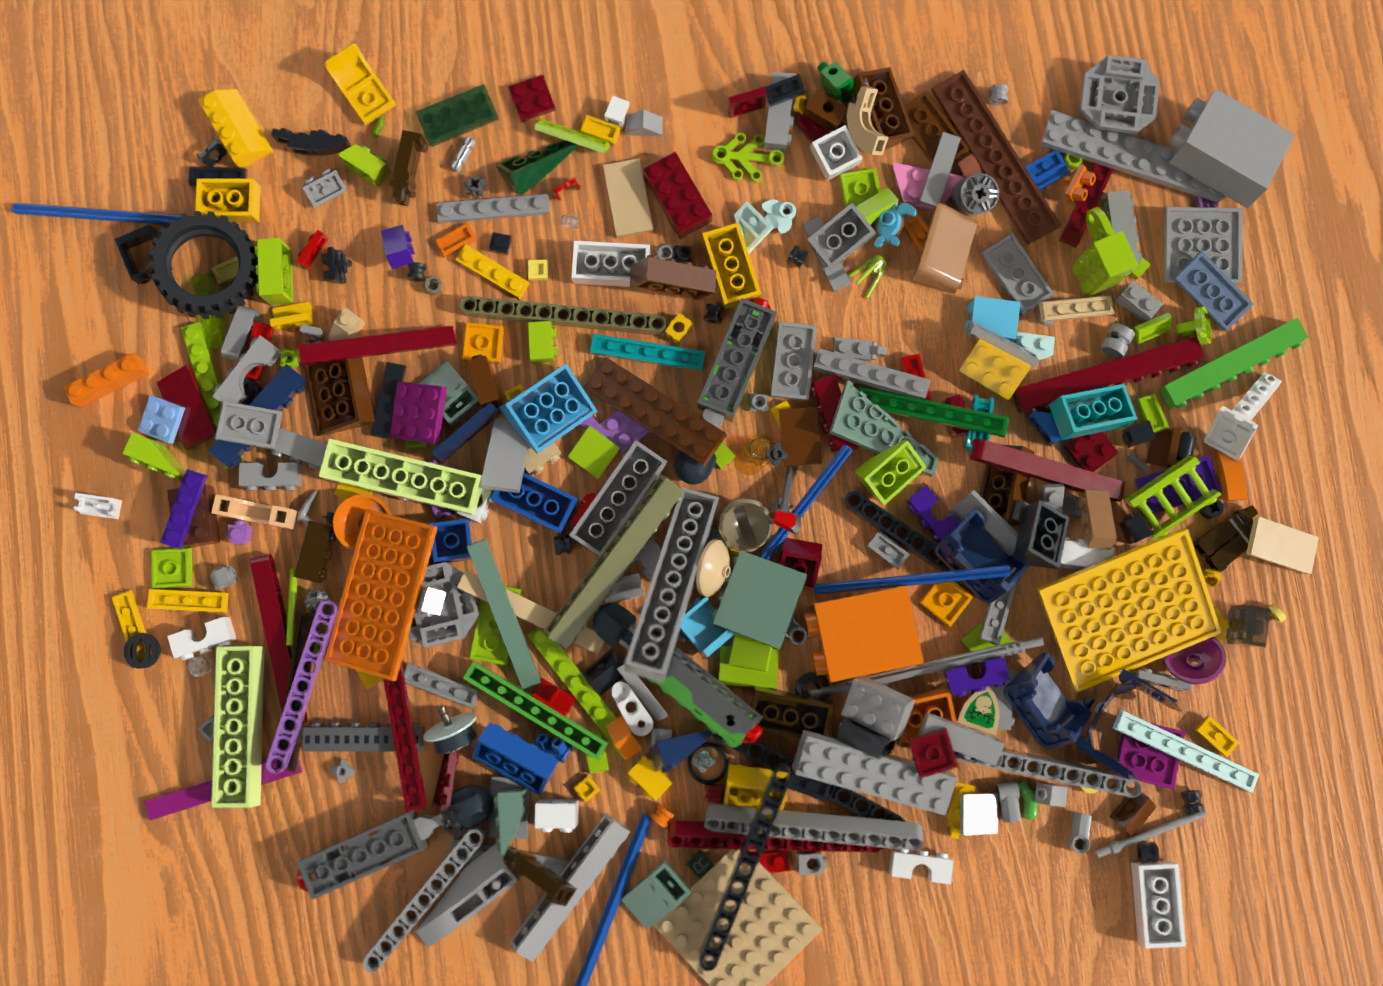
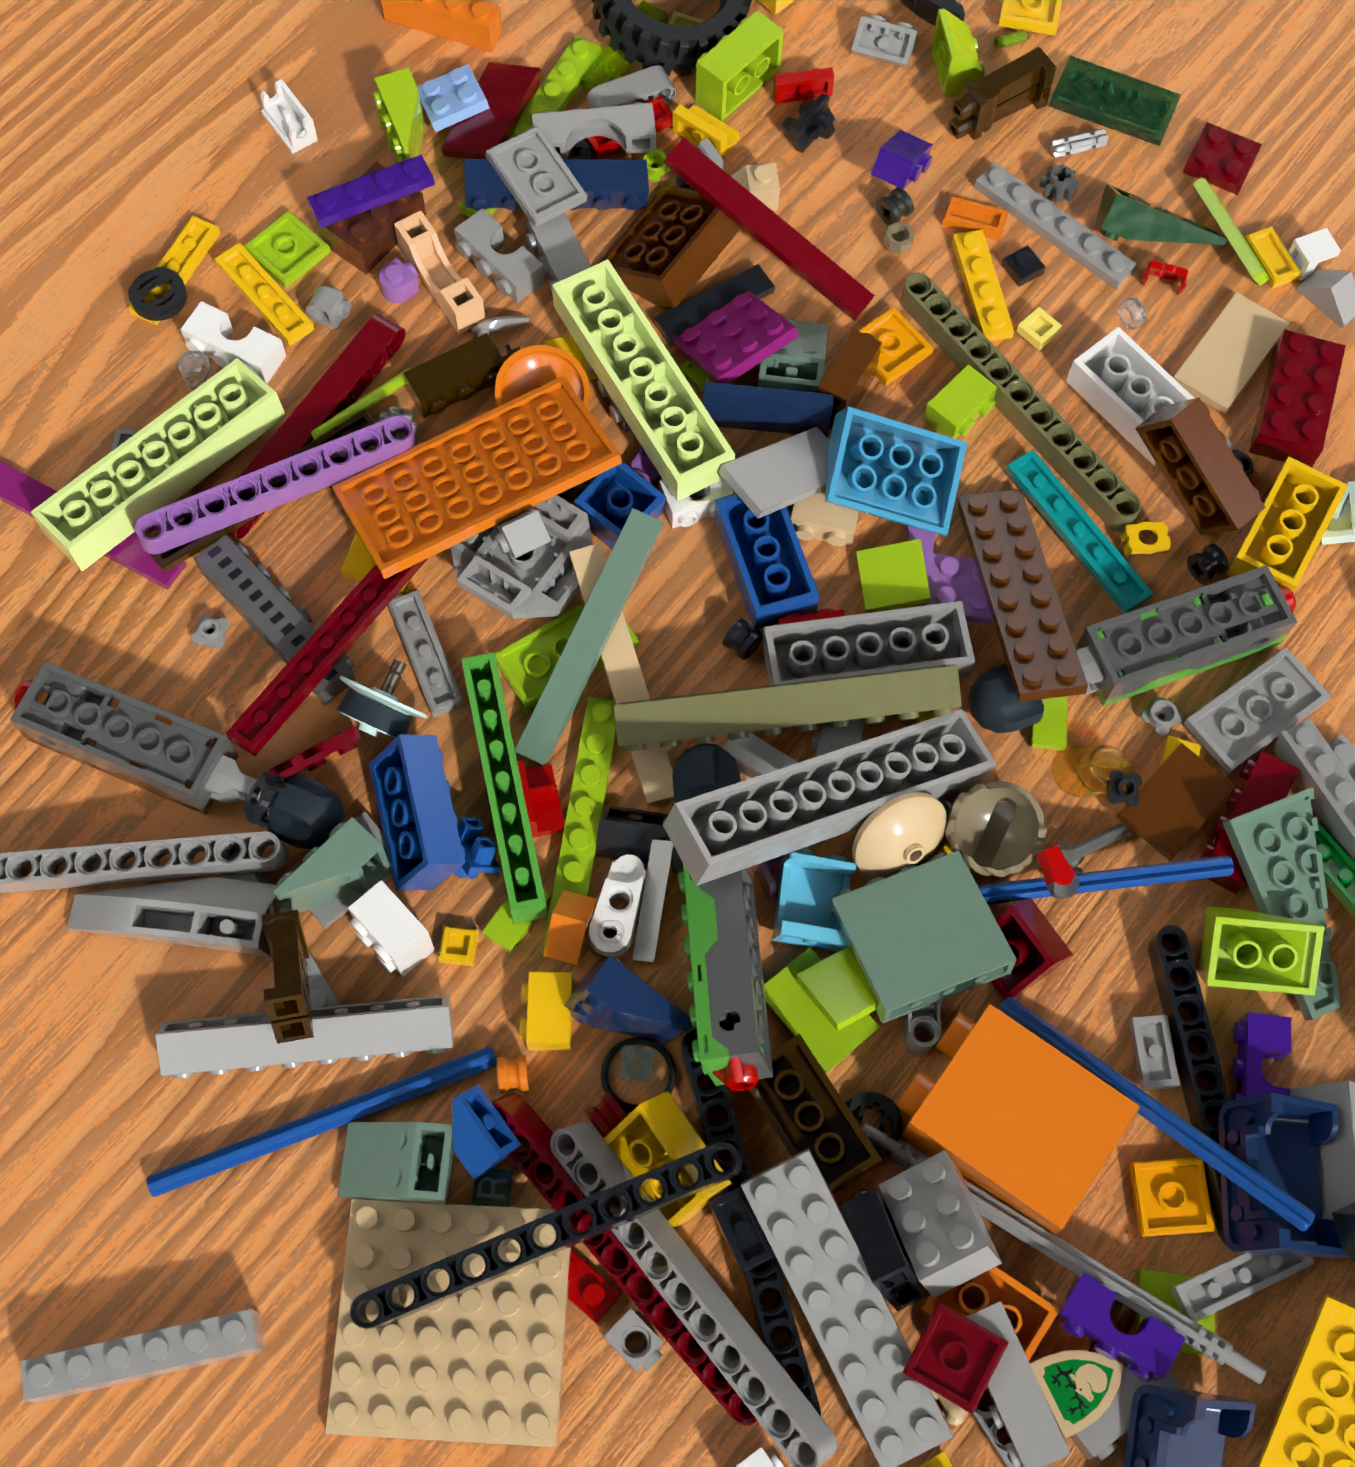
camera: 45 degrees right, 15 degrees down
(677, 853) = (480, 1133): none -> blue slope

